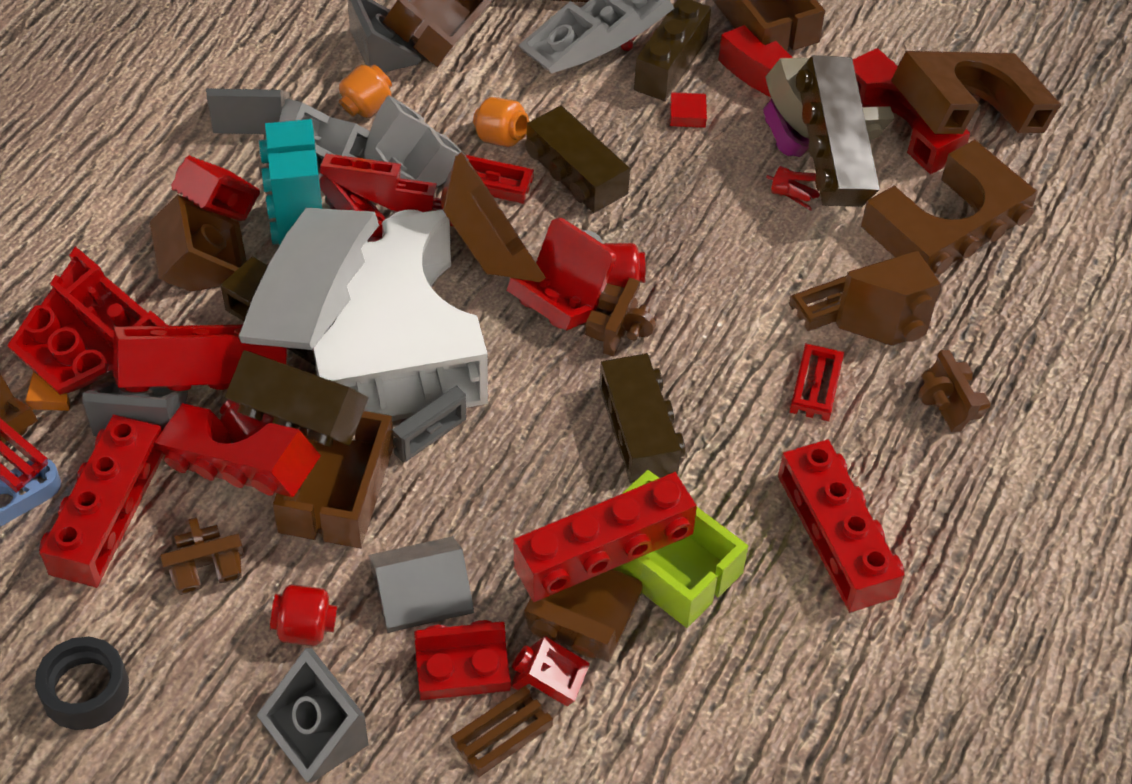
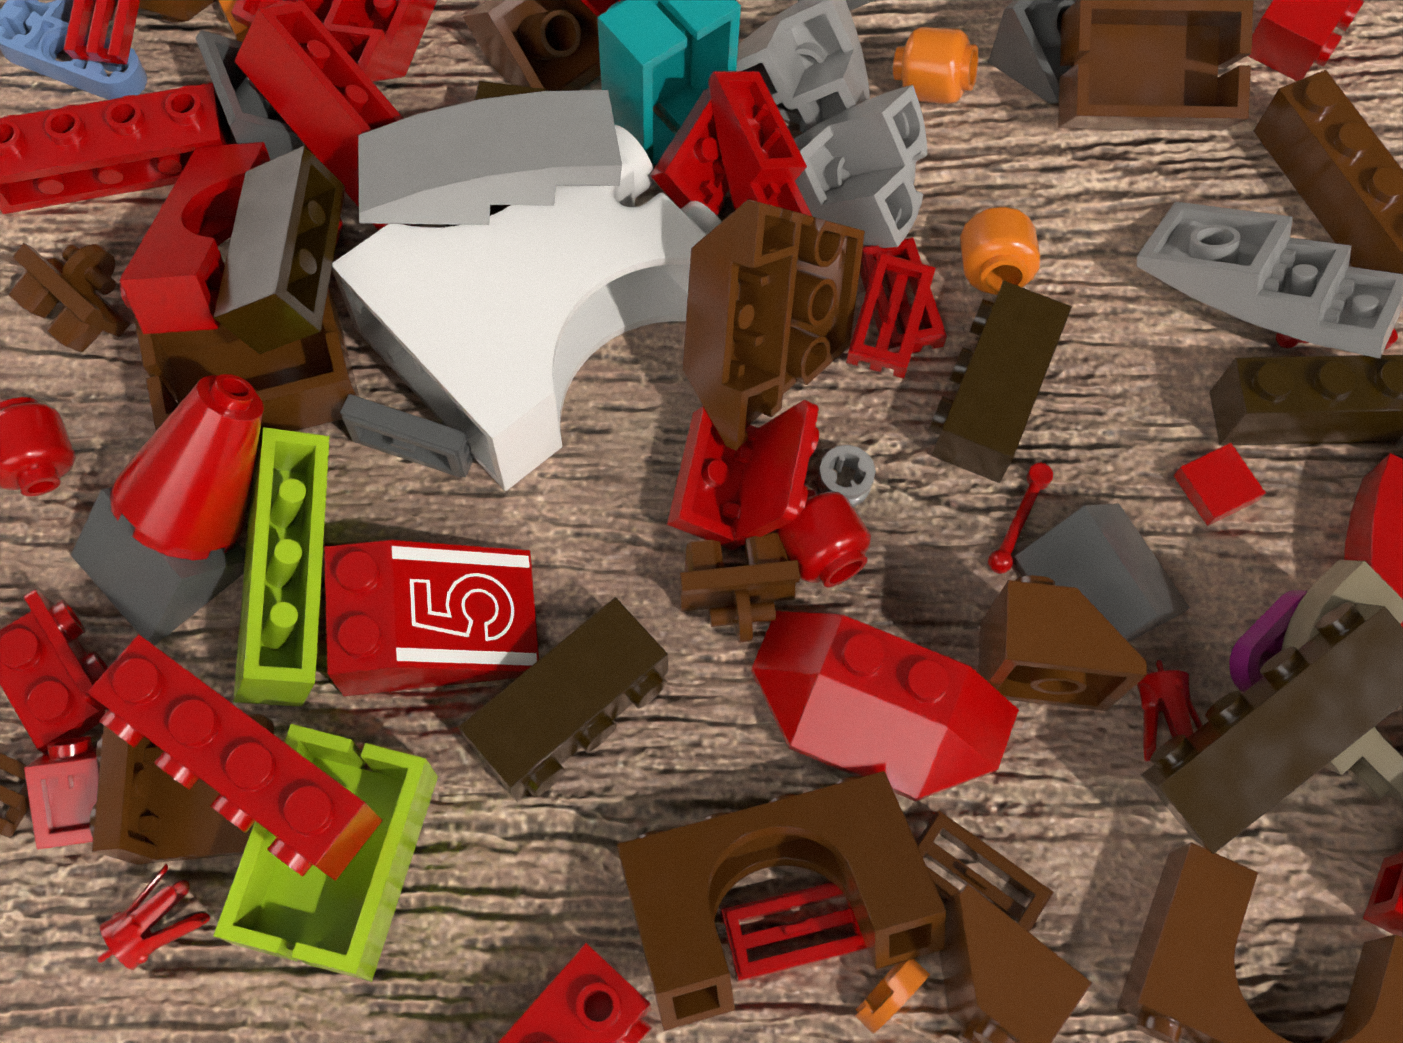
camera: 60 degrees right, 15 degrees up
(397, 508) = (195, 472): none -> red cone
(469, 501) = (282, 569): none -> lime brick
(502, 184) = (878, 355): none -> red tile
(546, 464) = (427, 615): none -> red slope
(637, 176) = (1038, 478): none -> red hinge
(654, 670) = (130, 933): none -> red piece
(711, 181) = (1110, 566): none -> dark grey slope
(717, 292) = (880, 704): none -> red wedge
(740, 203) = (1055, 648): none -> reddish brown slope
(785, 329) = (841, 831): none -> reddish brown arch
(871, 353) = (891, 994): none -> orange tile

